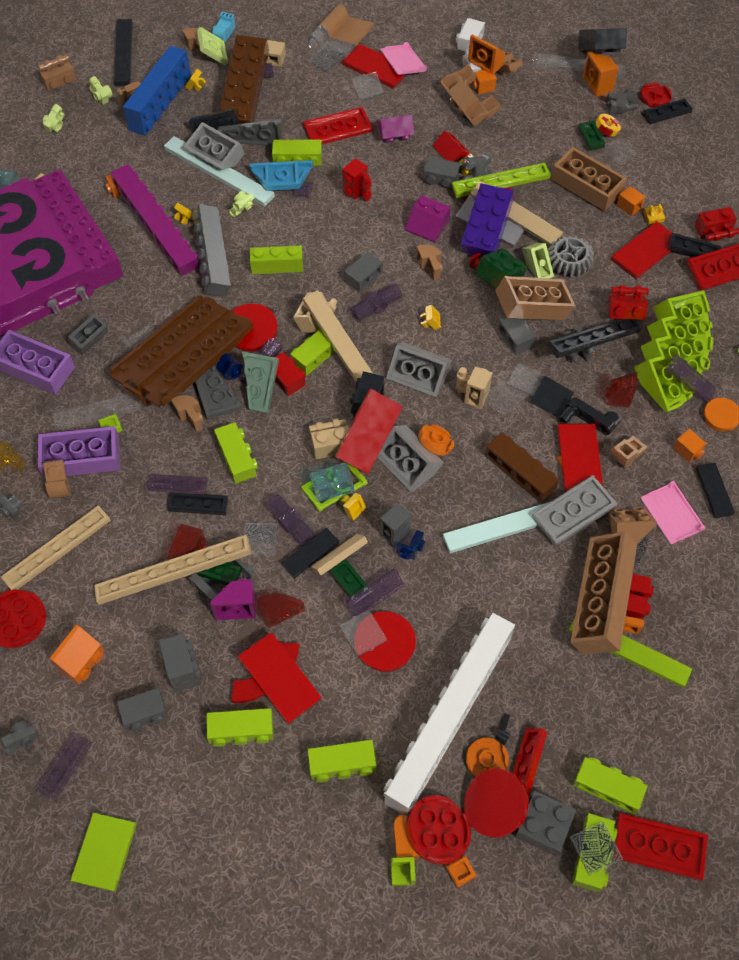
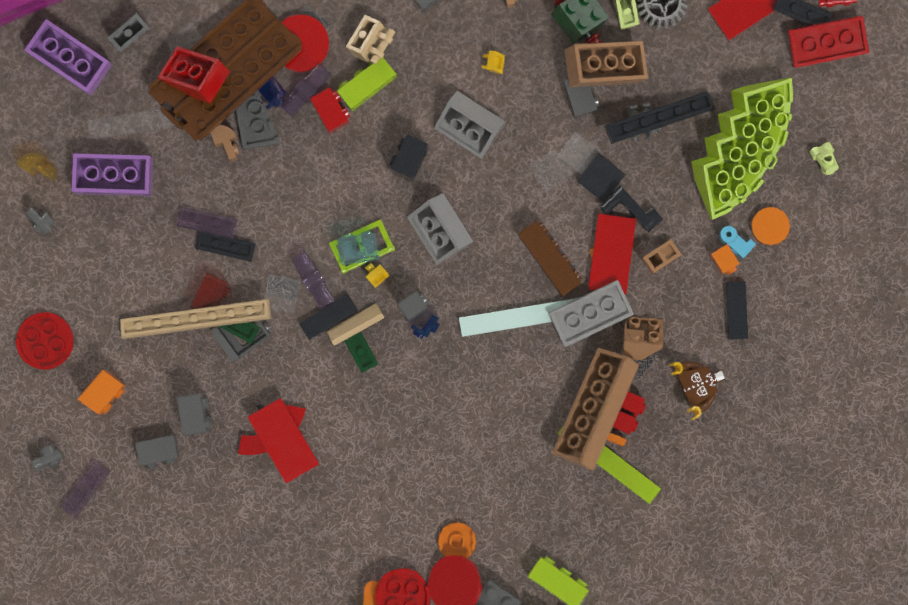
camera: 15 degrees right, 25 degrees up
(55, 548) = (85, 273): tan tile -> none
(57, 481) = (89, 204): medium nougat brick -> none
(104, 852) = (116, 569): lime tile -> none
(110, 421) = (145, 142): lime tile -> none
(154, 350) = (194, 74): none -> red slope
(235, 601) = (252, 361): magenta slope -> none
(236, 452) = (268, 196): lime brick -> none
(240, 727) = (242, 480): lime brick -> none
(260, 378) = (302, 118): sand green wing -> none
(278, 608) = (289, 371): clear red slope -> none
(328, 437) = (365, 199): tan brick -> none
(336, 334) = (389, 82): tan tile -> none
(342, 760) = (328, 525): lime brick -> none
(363, 633) = (365, 408): clear piece -> none
(369, 431) = (403, 201): red tile -> none
(375, 593) = (383, 370): clear purple tile -> none
(376, 302) = (438, 32): clear purple piece -> none
(399, 645) = (385, 417): red tile -> none
(436, 439) = (470, 214): orange tile -> none
(448, 716) = (430, 500): white brick -> none
(475, 386) = (523, 161): tan brick -> none
(502, 735) = (475, 523): black hand -> none
(529, 756) = (492, 549): red plate -> none
(622, 390) = (670, 187): clear red slope -> none
(628, 306) = (705, 82): red brick -> none
(672, 513) = (688, 327): bright pink piece -> none
(688, 422) = (738, 246): none -> medium azure leg
(691, 378) = (747, 184): tile -> none
(698, 559) = (697, 385): none -> reddish brown torso

